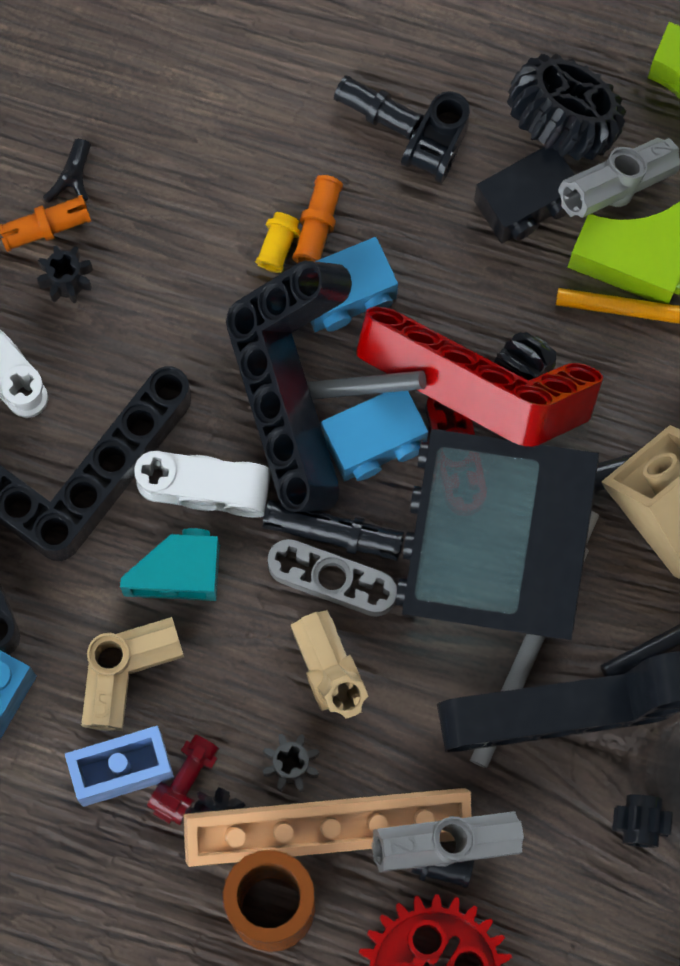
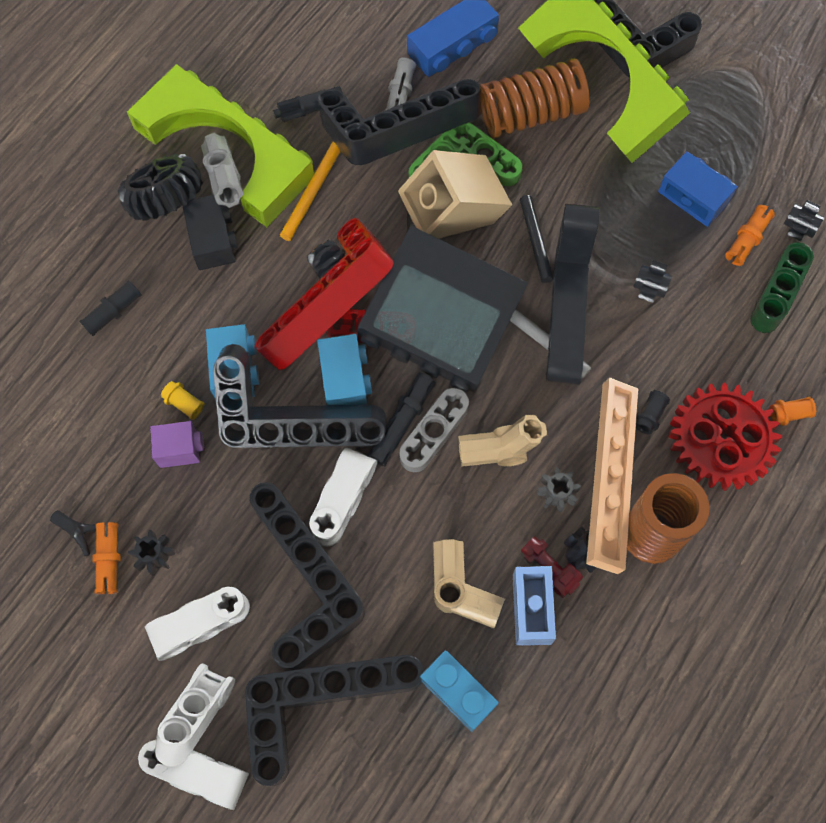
camera: 70 degrees left, 5 degrees down
(177, 569) = (398, 528): teal slope -> none
(213, 254) = (176, 444): none -> medium lavender brick
(318, 219) = (177, 369): orange pin -> none
(367, 385) = (309, 363): dark grey bar -> none
(420, 843) = (643, 412): light grey piece -> none
(437, 143) = (151, 277): black piece -> none

